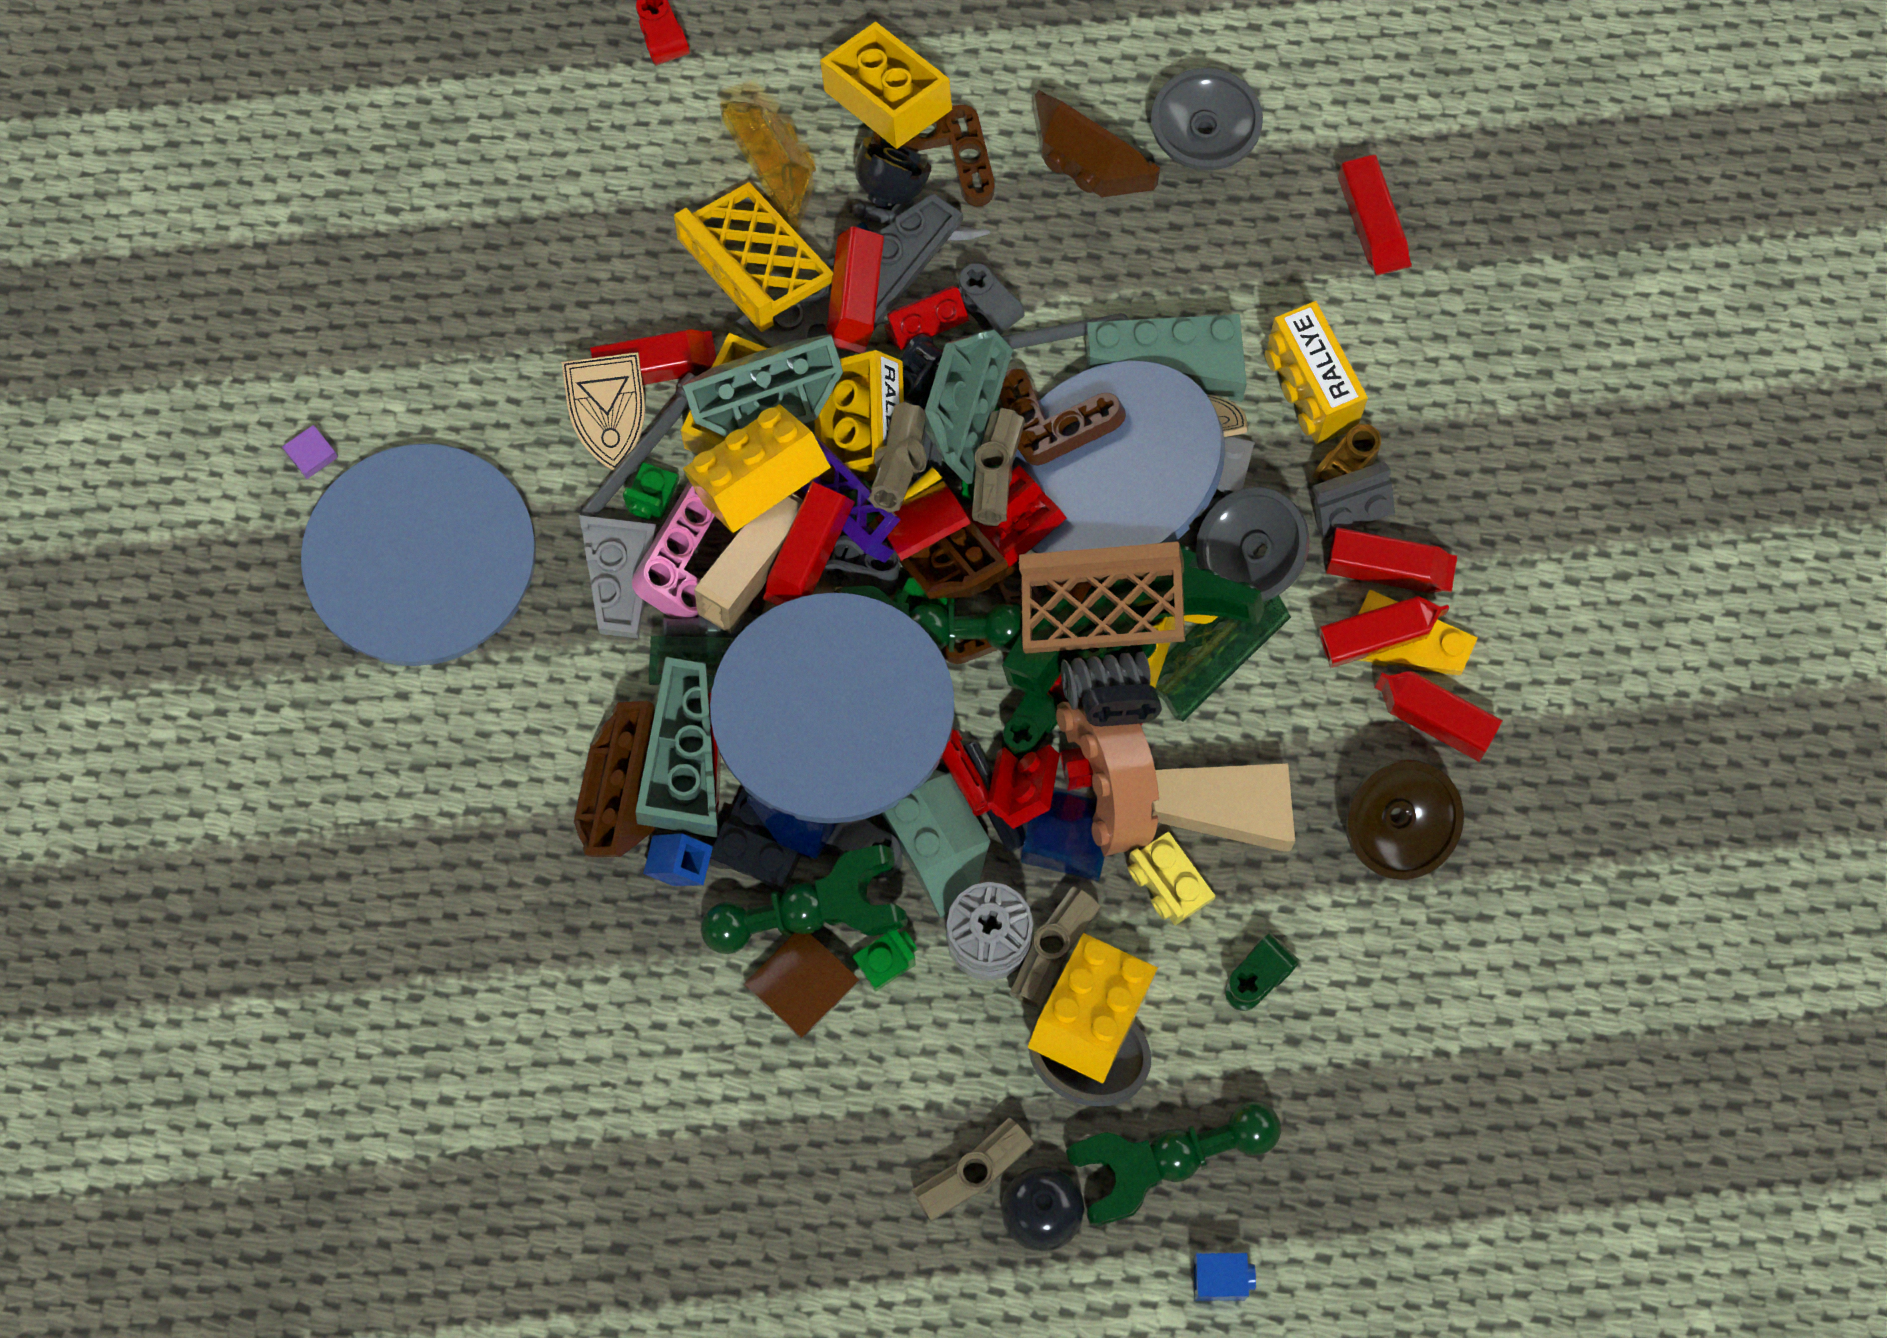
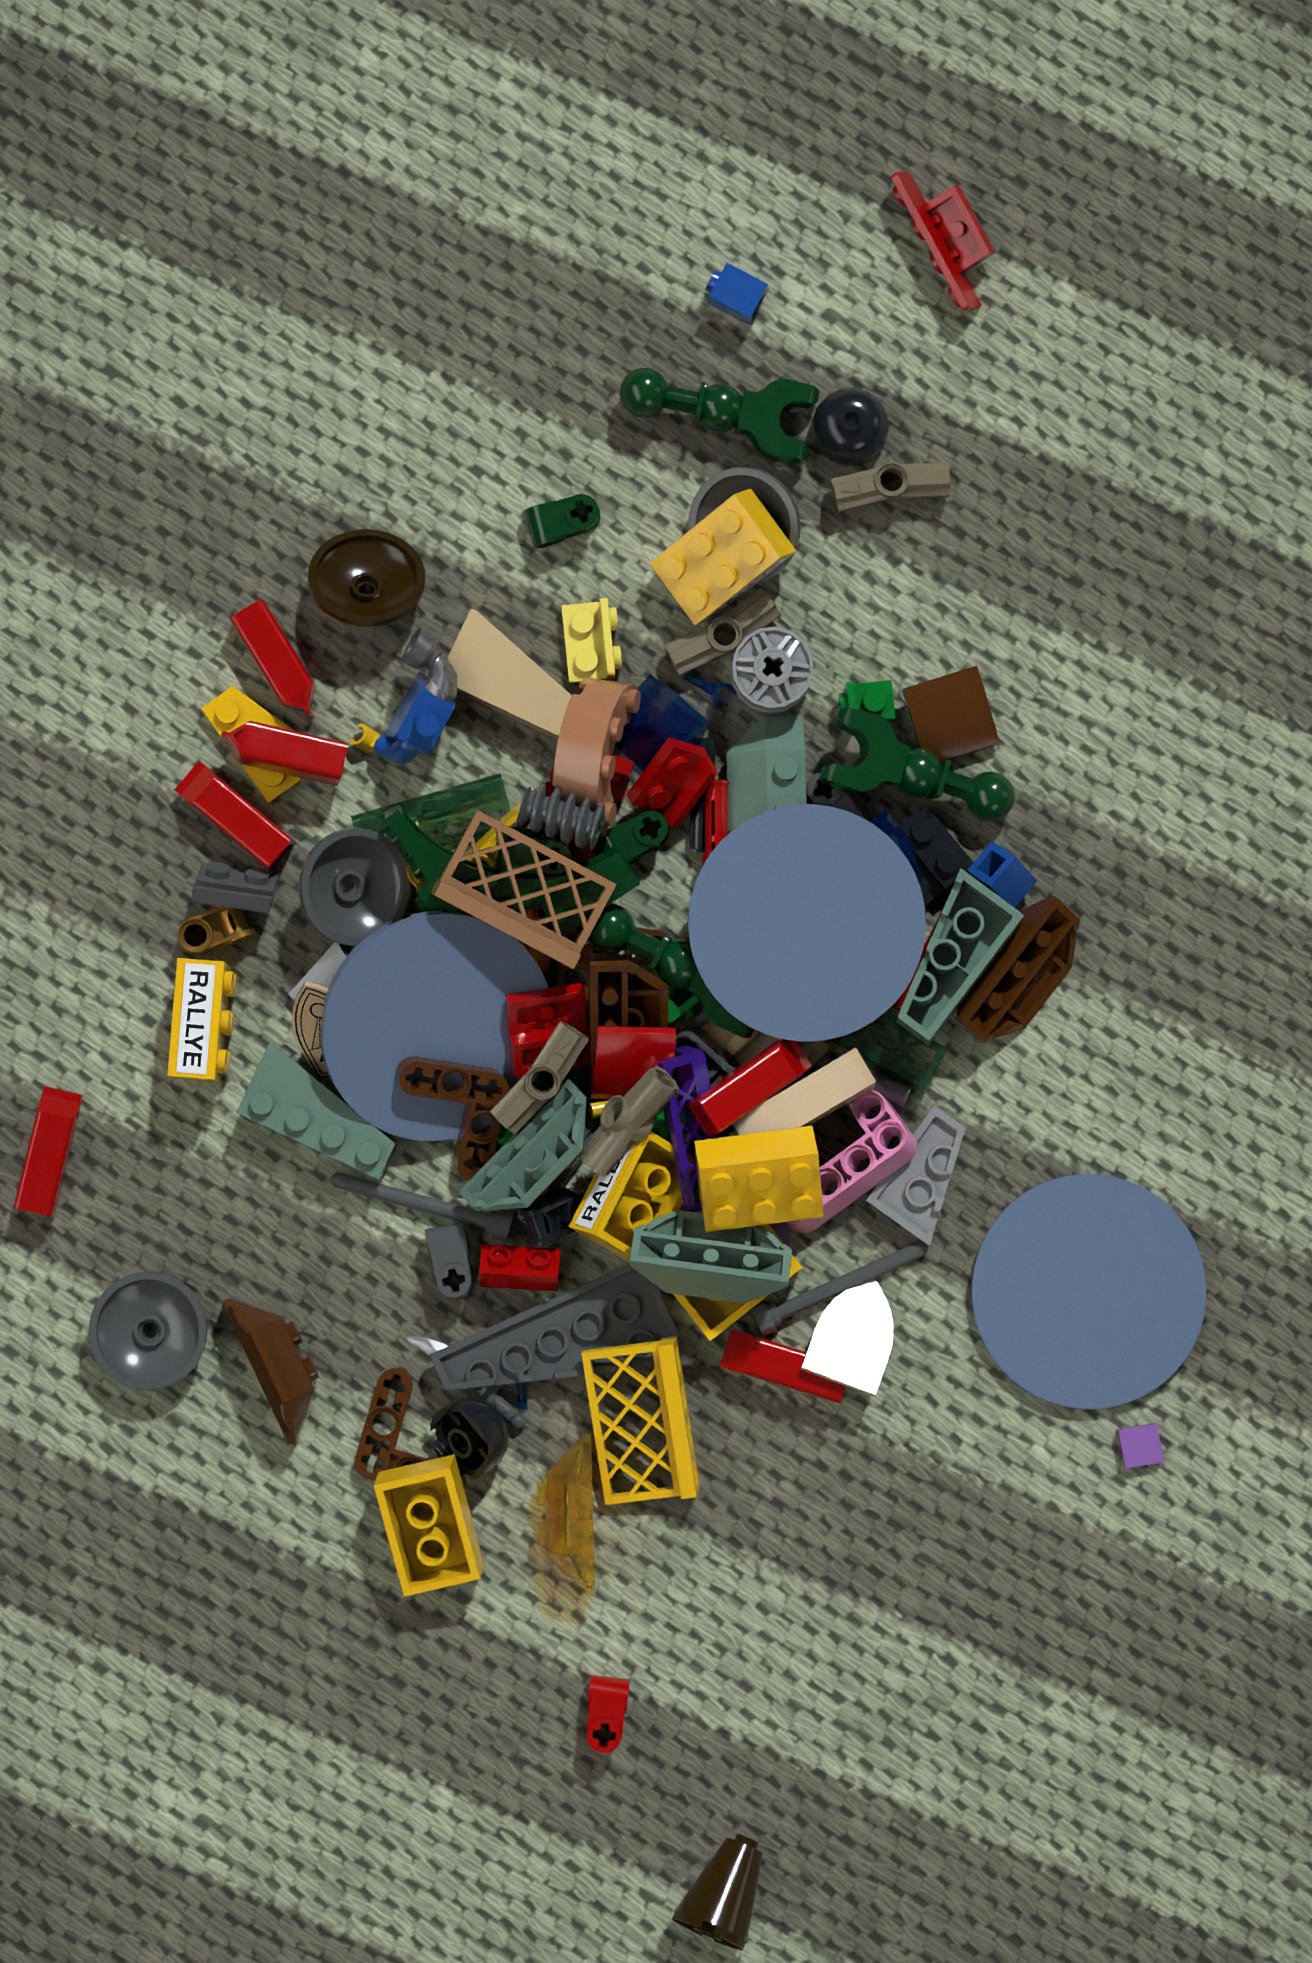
camera: 155 degrees left, 15 degrees up
(650, 492) = (853, 1238): green bracket -> none
(855, 289) = (574, 1321): red piece -> none
(1038, 895) = (709, 687): none -> clear blue hand
(1121, 705) = (563, 781): black beam -> none
(1284, 729) = (422, 710): none -> torso

